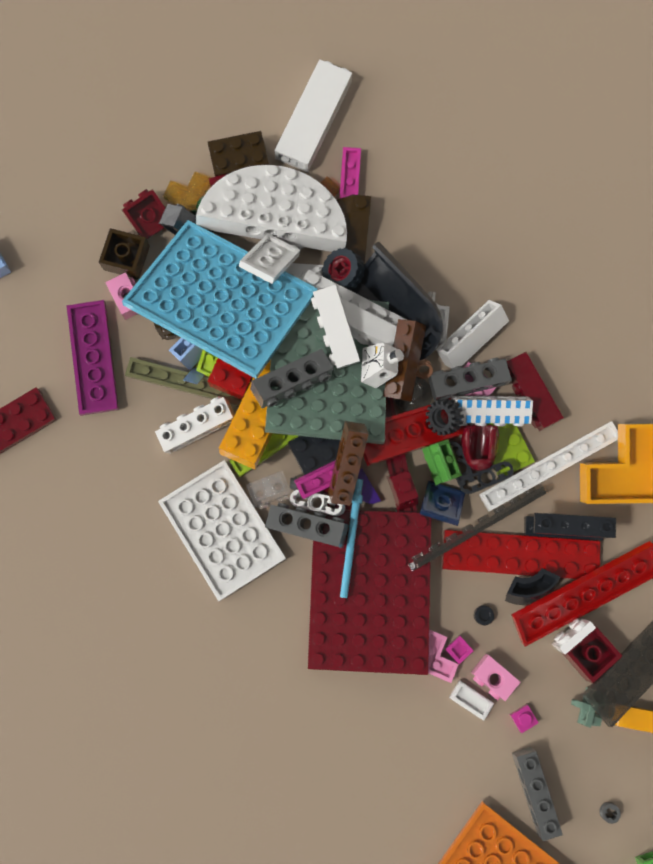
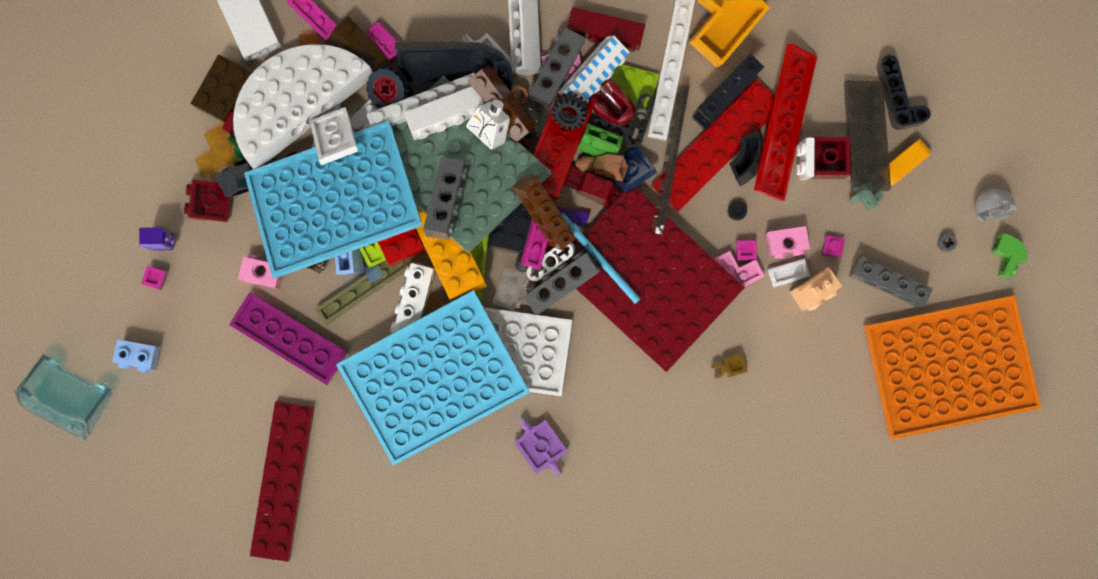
camera: 50 degrees left, 5 degrees up
(58, 224) = (154, 278): none -> dark pink plate
(86, 201) = (156, 239): none -> dark purple brick
(124, 253) = (226, 245): dark brown brick -> none
(150, 489) = (433, 377): none -> medium azure plate
(165, 619) = (540, 446): none -> medium lavender plate
(336, 326) = (433, 131): white brick -> none
(357, 719) = (732, 365): none -> pearl gold plate
(376, 234) = (383, 40): none -> dark pink plate
(426, 480) = (605, 166): none -> nougat piece
(477, 735) = (819, 287): none -> light nougat hinge

